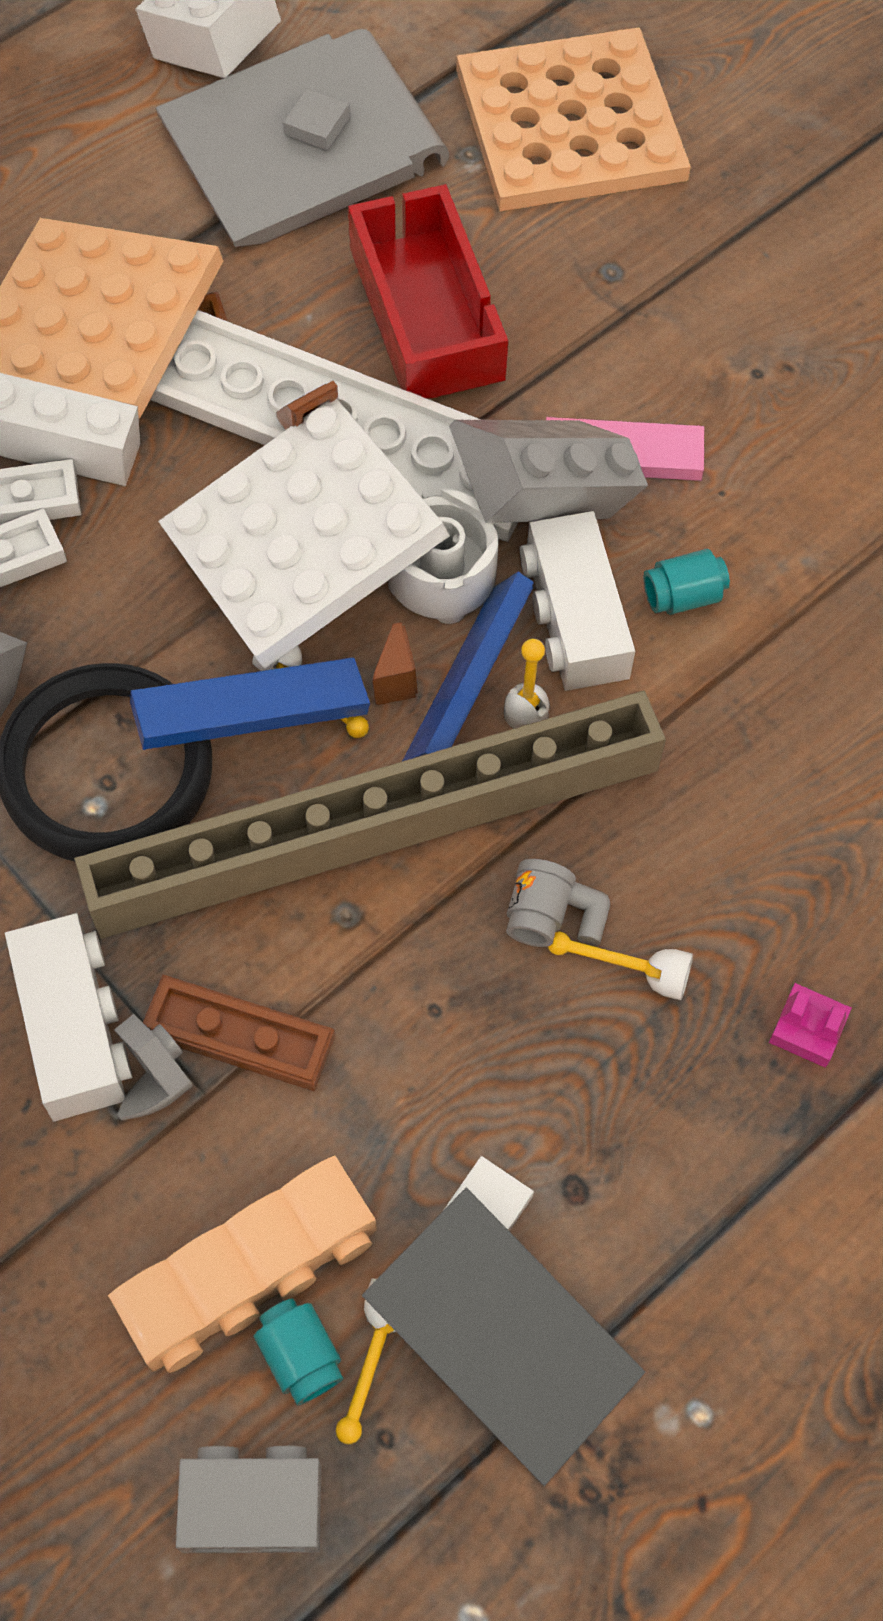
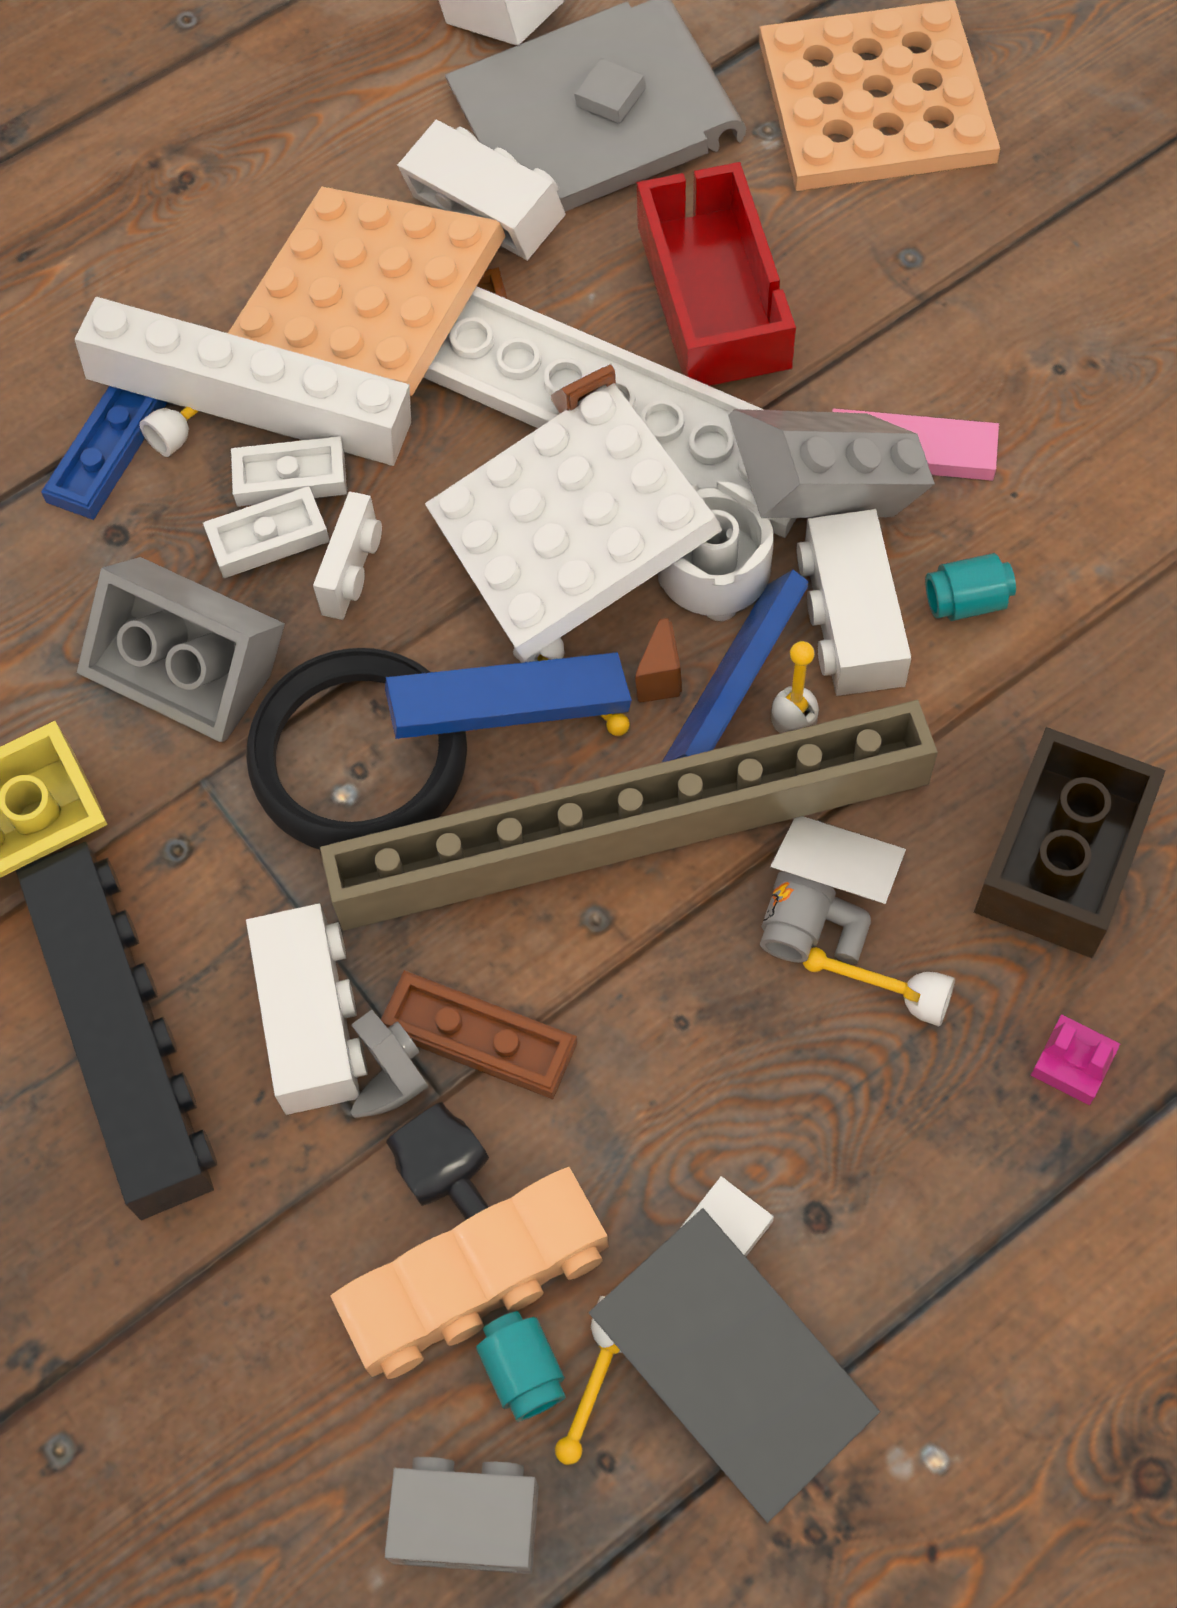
camera: 10 degrees right, 0 degrees up
(80, 587) = (342, 568): none -> white plate
(179, 204) = (465, 177): none -> white brick
(206, 1155) = (439, 1158): none -> black piece
(577, 845) = (839, 858): none -> white sticker
(794, 820) = (1070, 842): none -> dark brown brick

